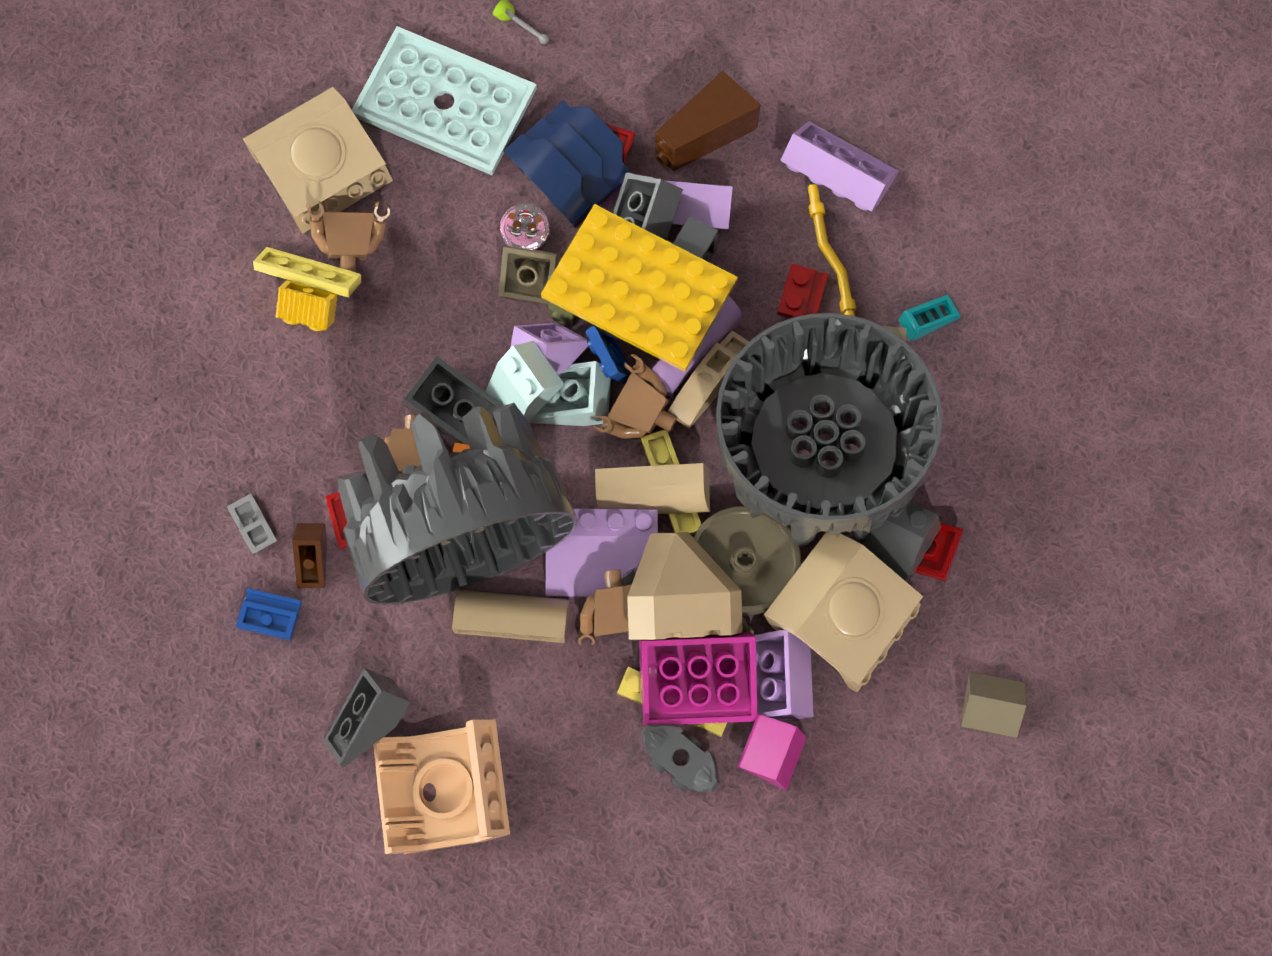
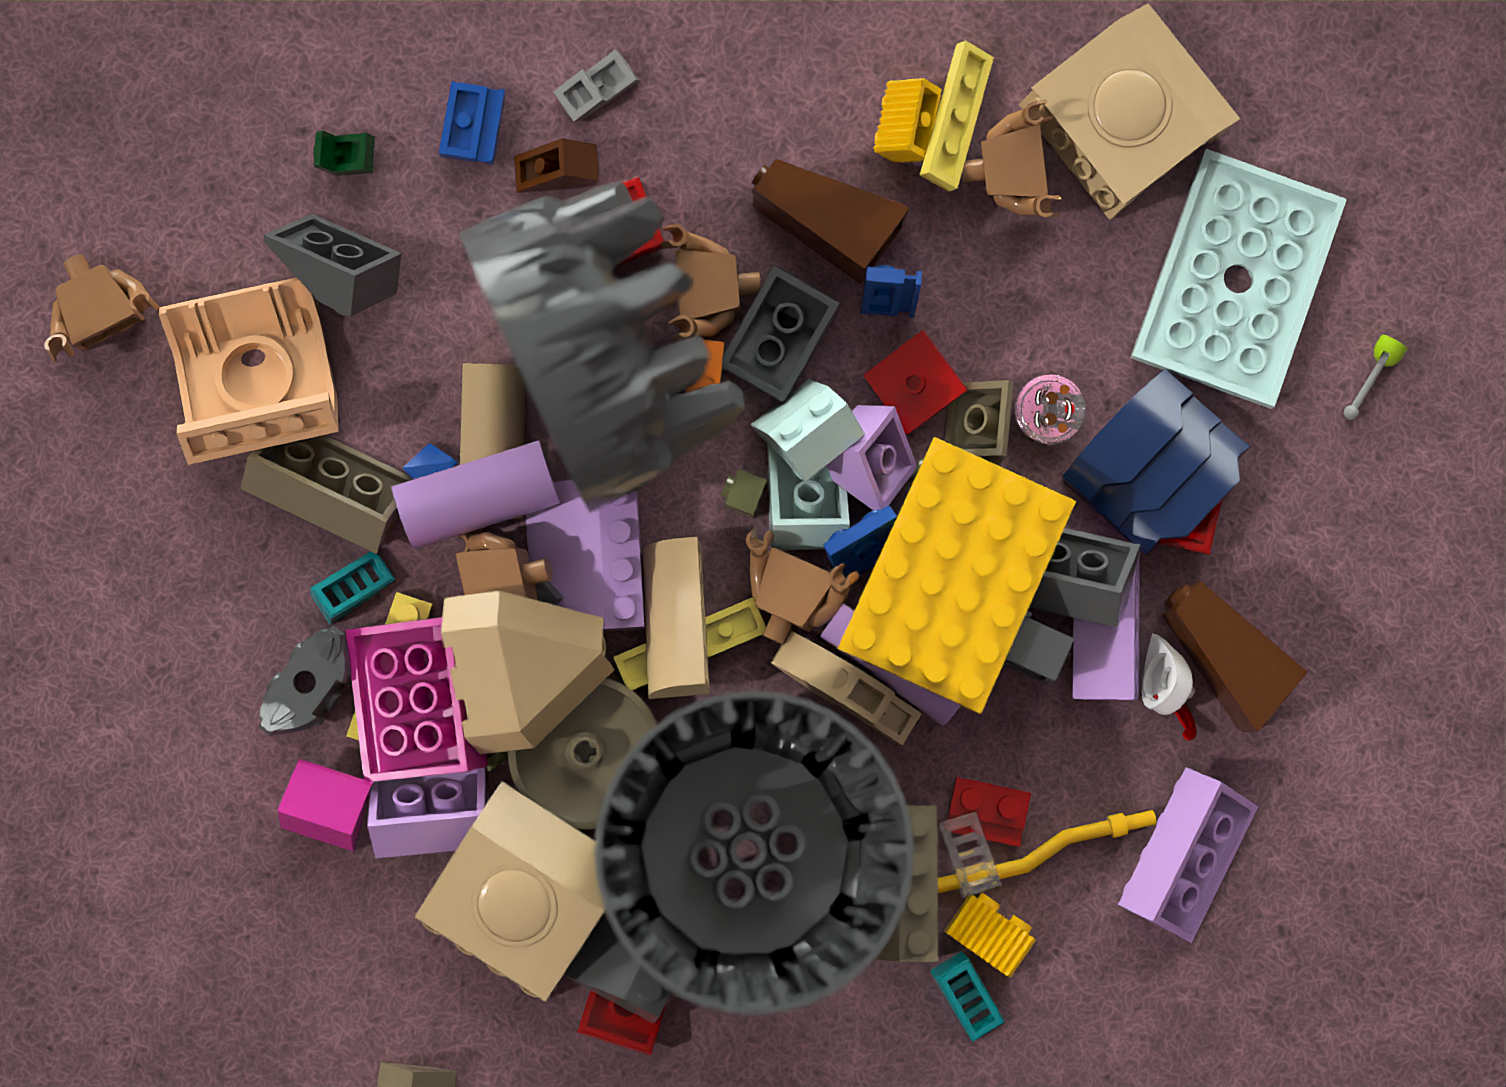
camera: 80 degrees right, 10 degrees up
(281, 709) = (344, 153): none -> dark green bracket
(372, 361) = (829, 216): none -> reddish brown slope
(377, 906) = (94, 306): none -> medium nougat torso
(429, 324) = (890, 291): none -> blue plate
(495, 315) = (916, 381): none -> red plate
(526, 662) = (428, 461): none -> blue slope
(536, 733) = (328, 487): none -> dark tan slope
(552, 620) = (475, 495): none -> lavender brick
(565, 438) = (743, 492): none -> olive plate
(622, 745) = (359, 597): none -> teal slope
(720, 167) = (1168, 684): none -> white piece
(839, 291) = (988, 864): none -> clear slope
(888, 296) = (990, 934): none -> yellow brick

